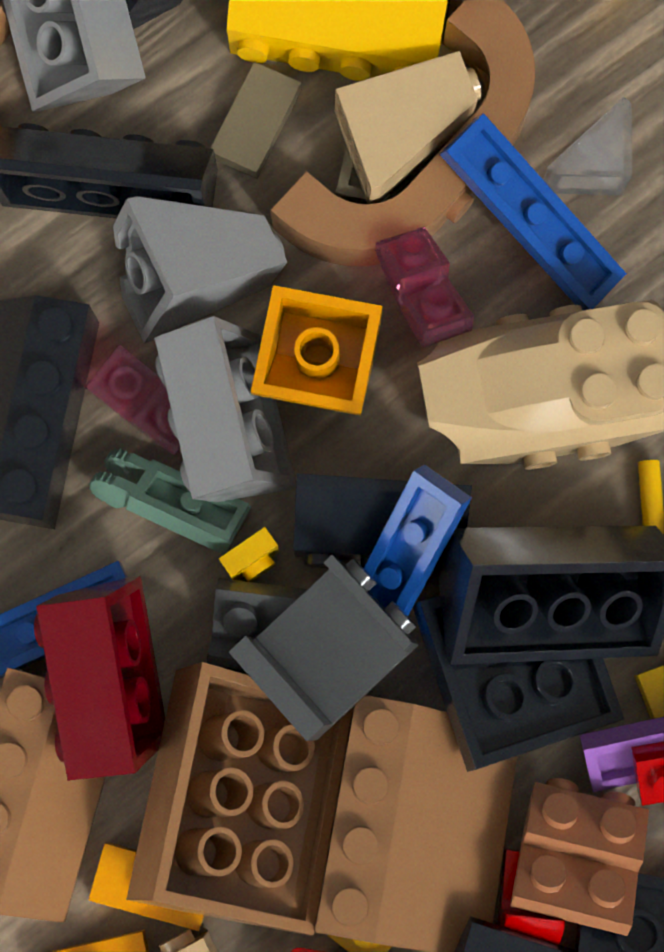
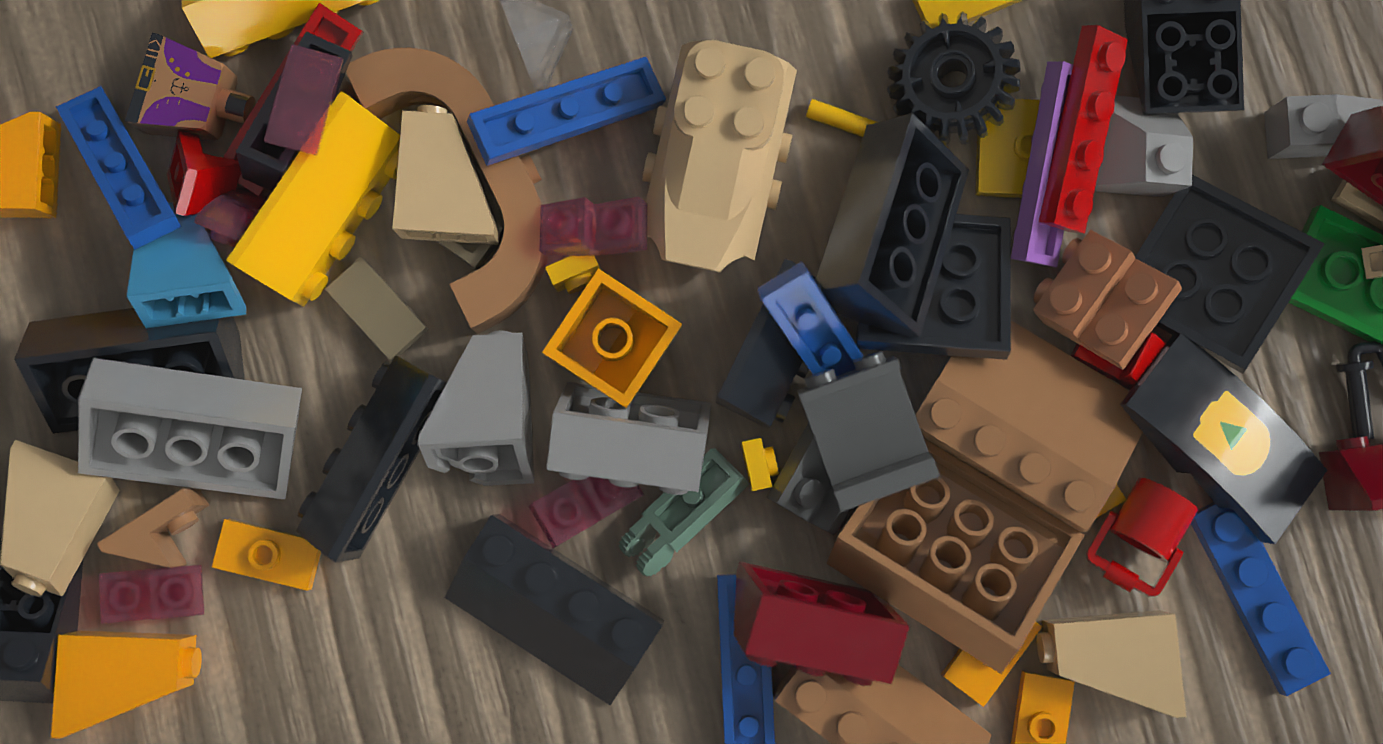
camera: 65 degrees left, 5 degrees up
(371, 287) = (572, 273): none -> yellow plate

